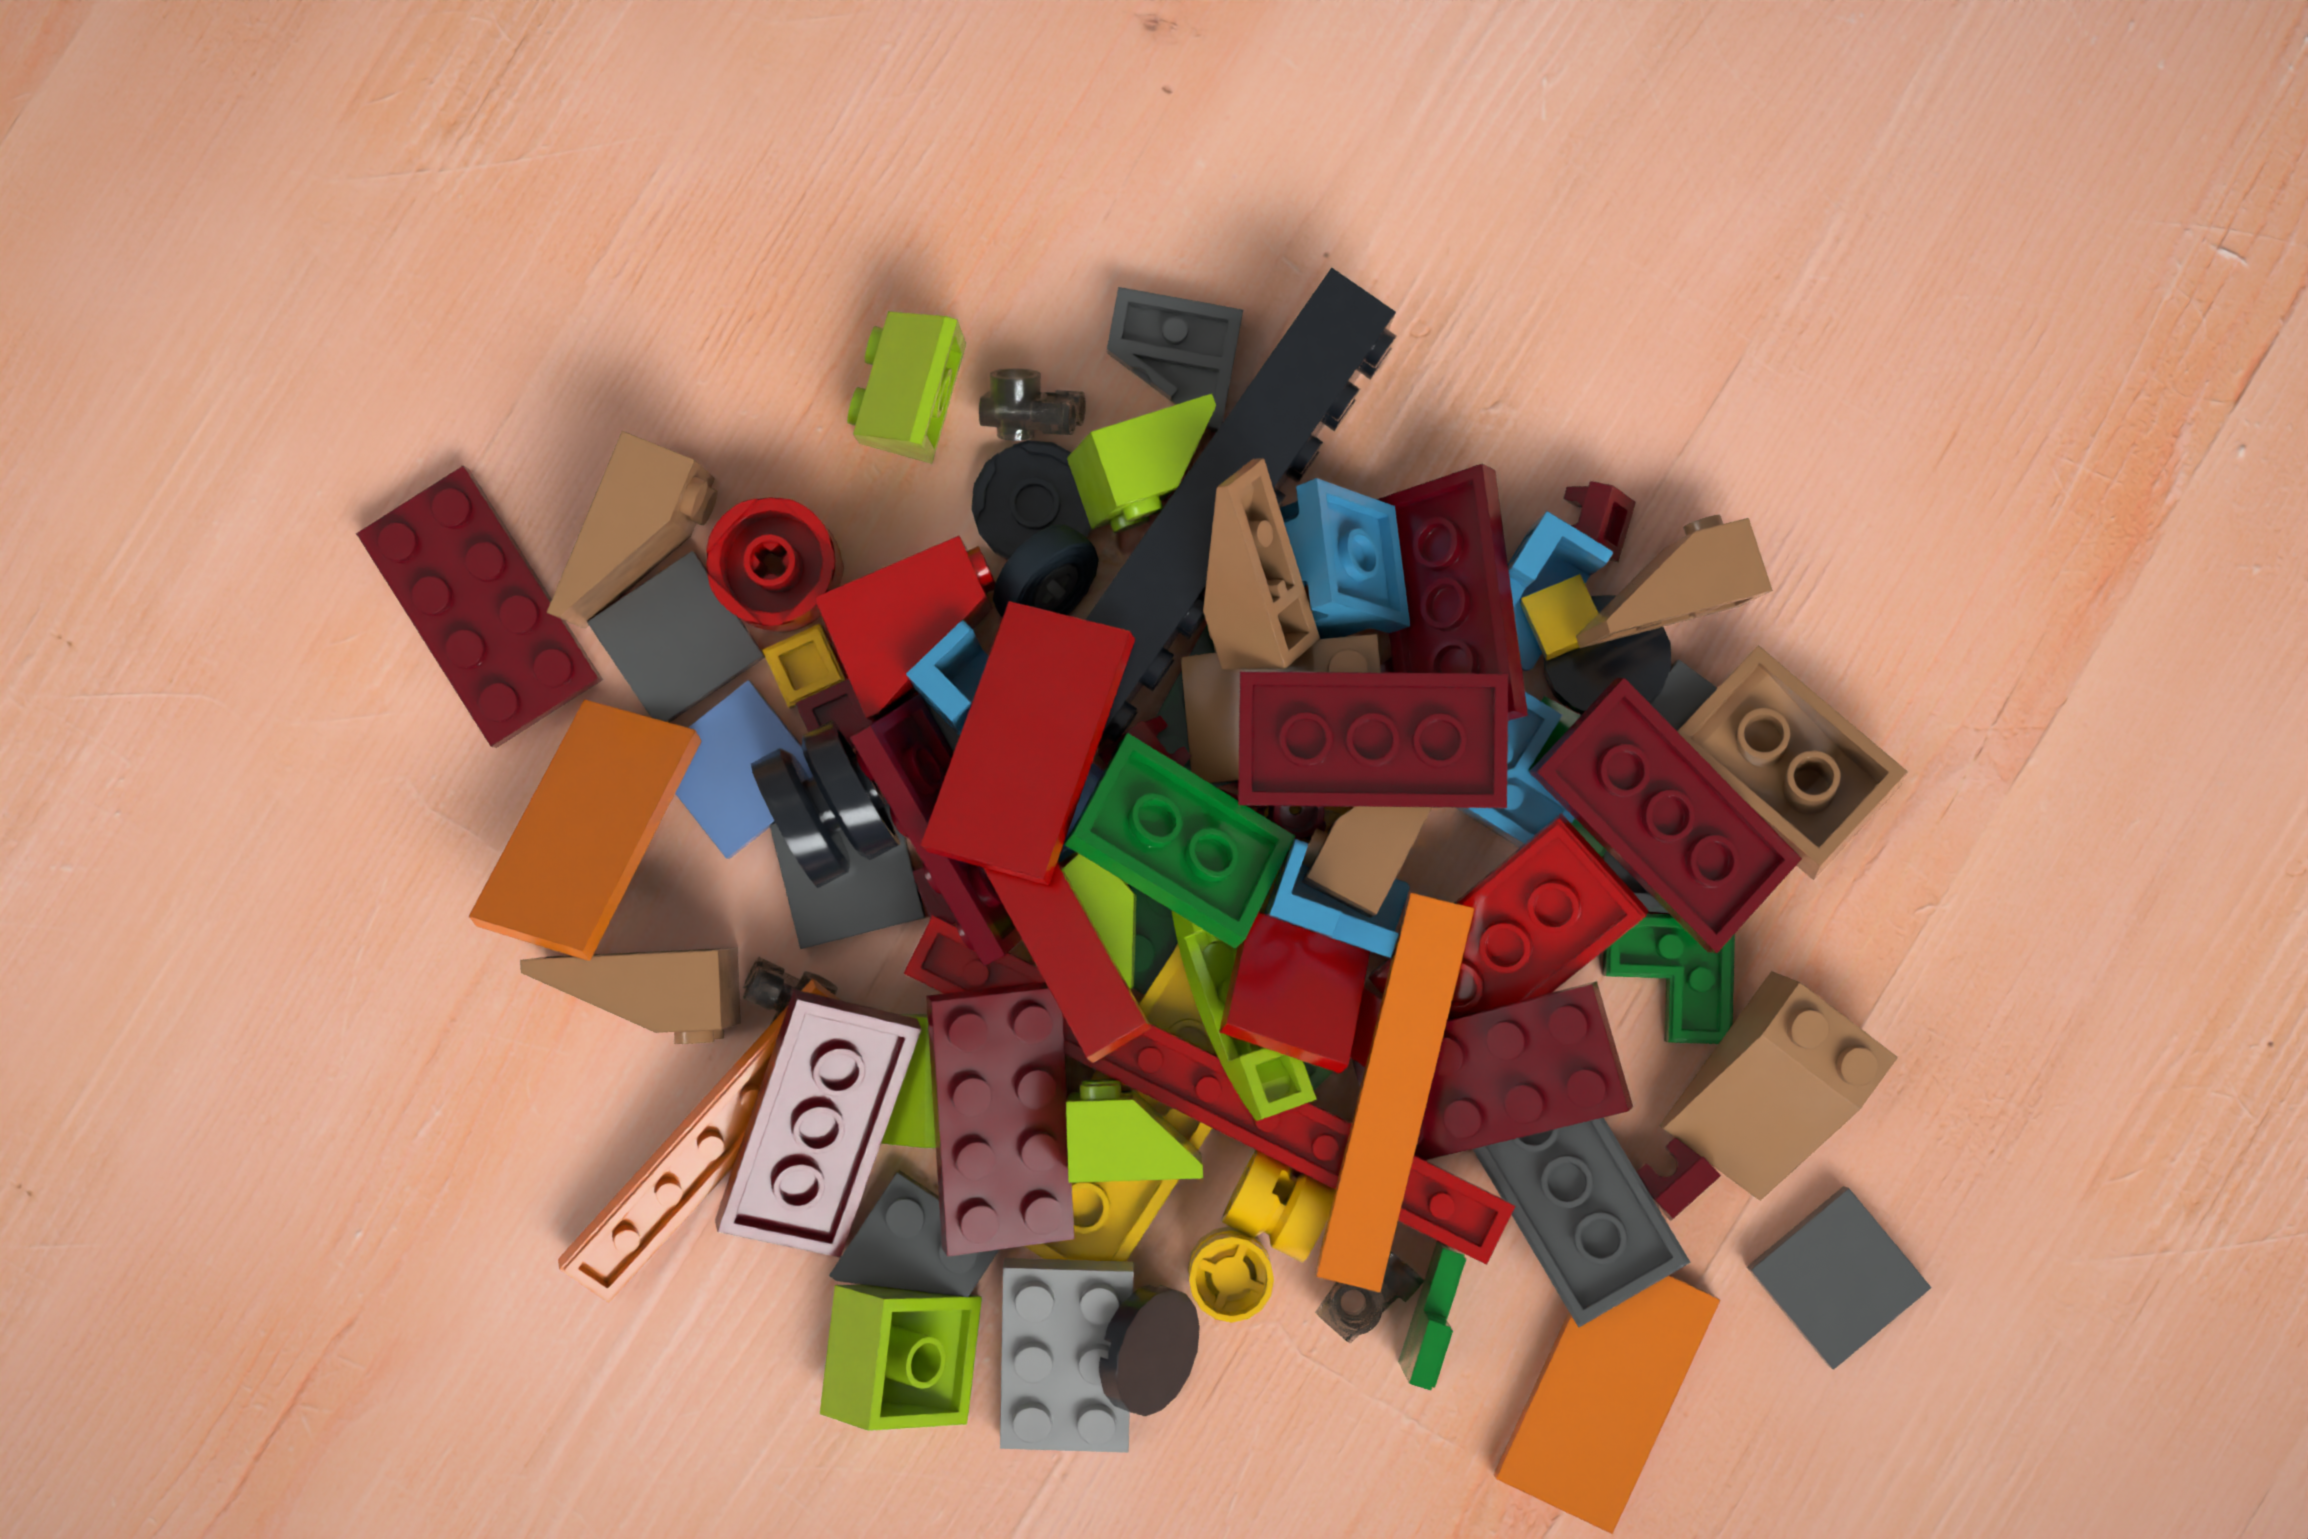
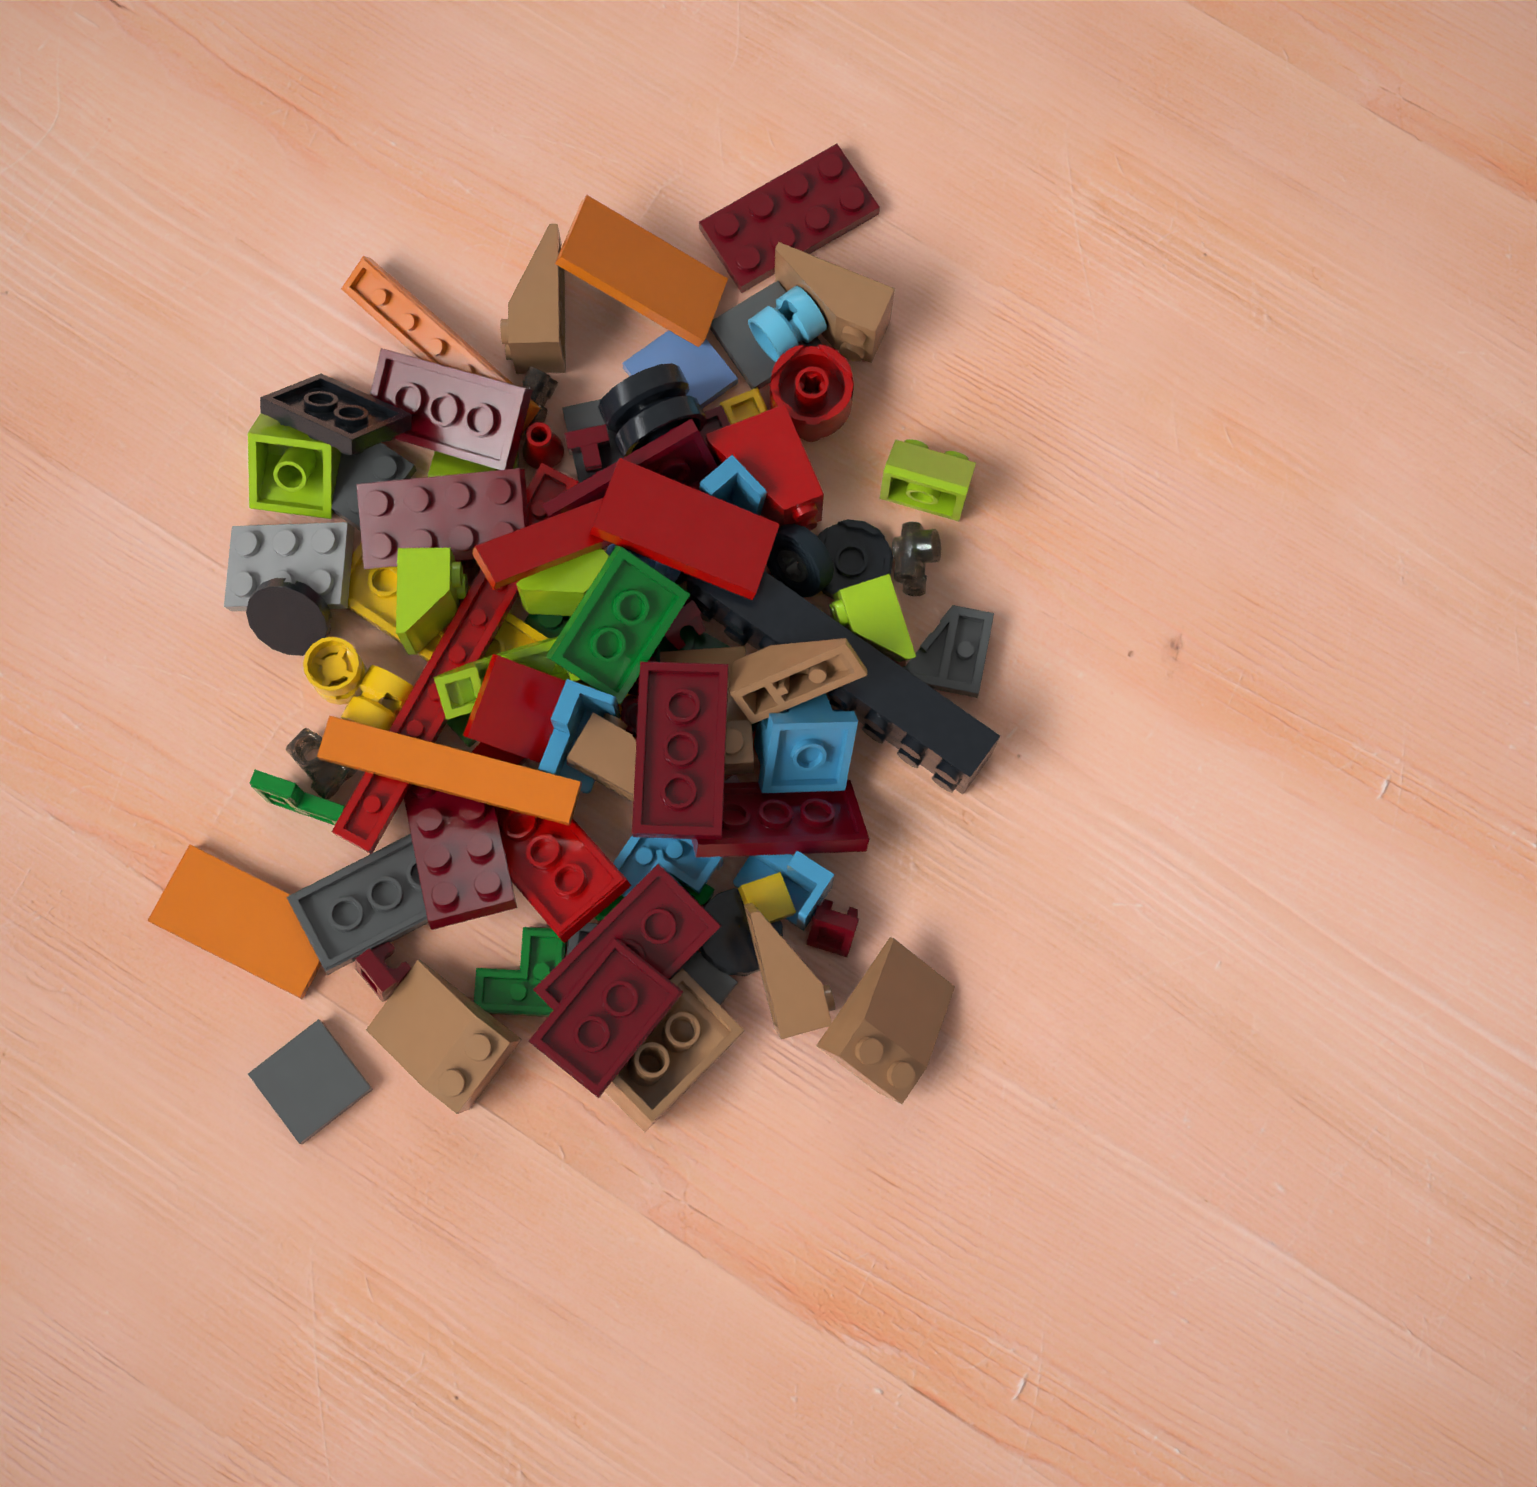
camera: 85 degrees right, 10 degrees down
(674, 624) = (791, 321): none -> medium azure wheel
(830, 1295) = (336, 414): none -> black plate
(866, 903) = (588, 442): none -> dark red tile
(884, 972) = (542, 446): none -> red cone
(1742, 434) = (890, 1022): none -> medium nougat slope
(1762, 842) = (606, 1016): none -> dark red tile

